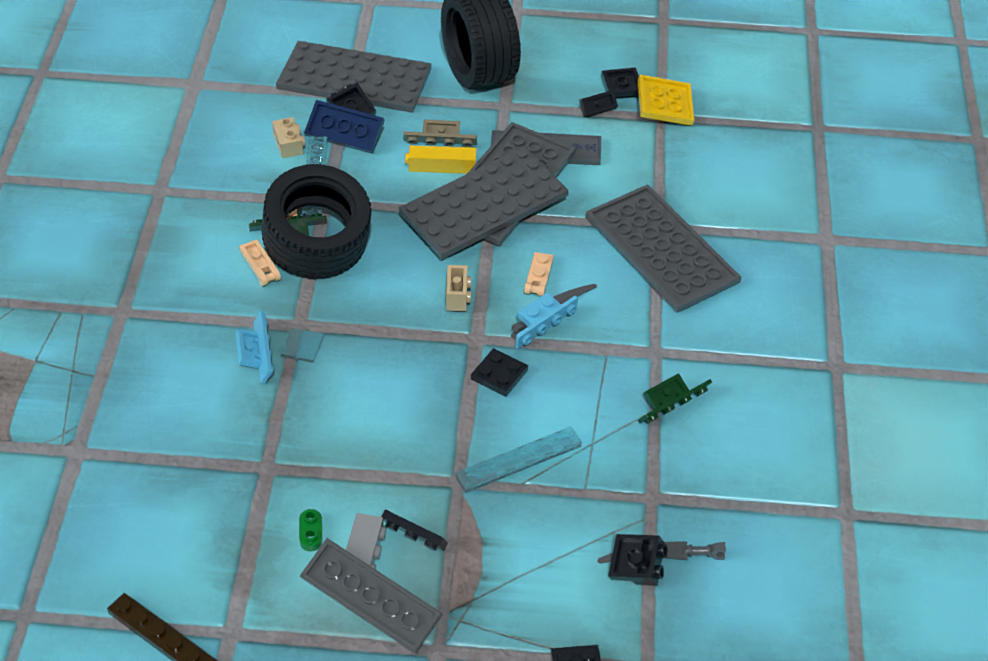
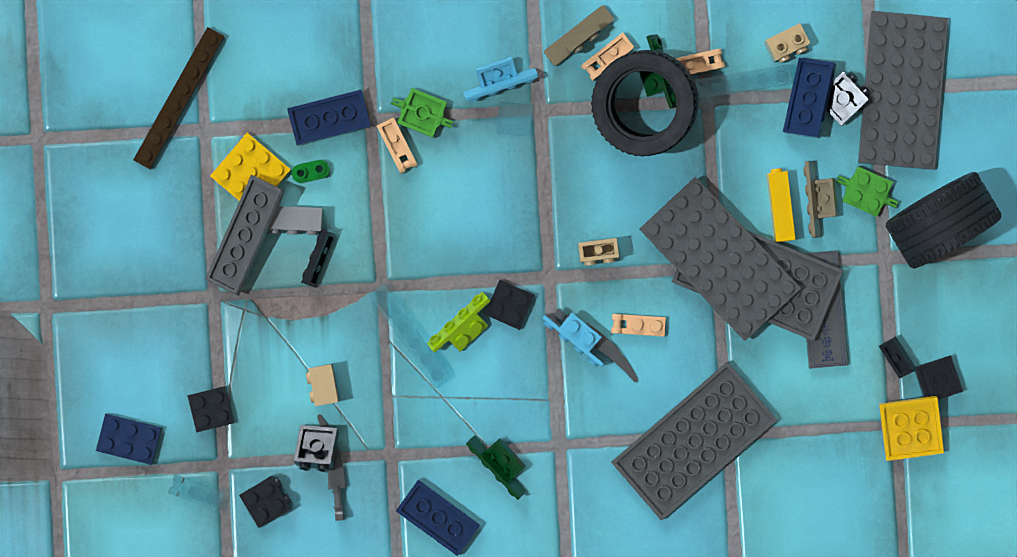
camera: 80 degrees right, 40 degrees up
(232, 279) = (578, 35): none -> dark tan bracket
(253, 502) = (329, 117): none -> dark blue plate
(272, 417) = (422, 112): none -> bright green plate
(287, 595) = (246, 160): none -> yellow plate
(302, 443) = (396, 144): none -> light nougat plate
(441, 105) = (867, 191): none -> bright green plate
(515, 411) = (462, 327): none -> lime bracket
(564, 542) = (323, 385): none -> tan brick
(696, 623) = (266, 501): none -> black plate
(727, 460) = (437, 517): none -> dark blue plate

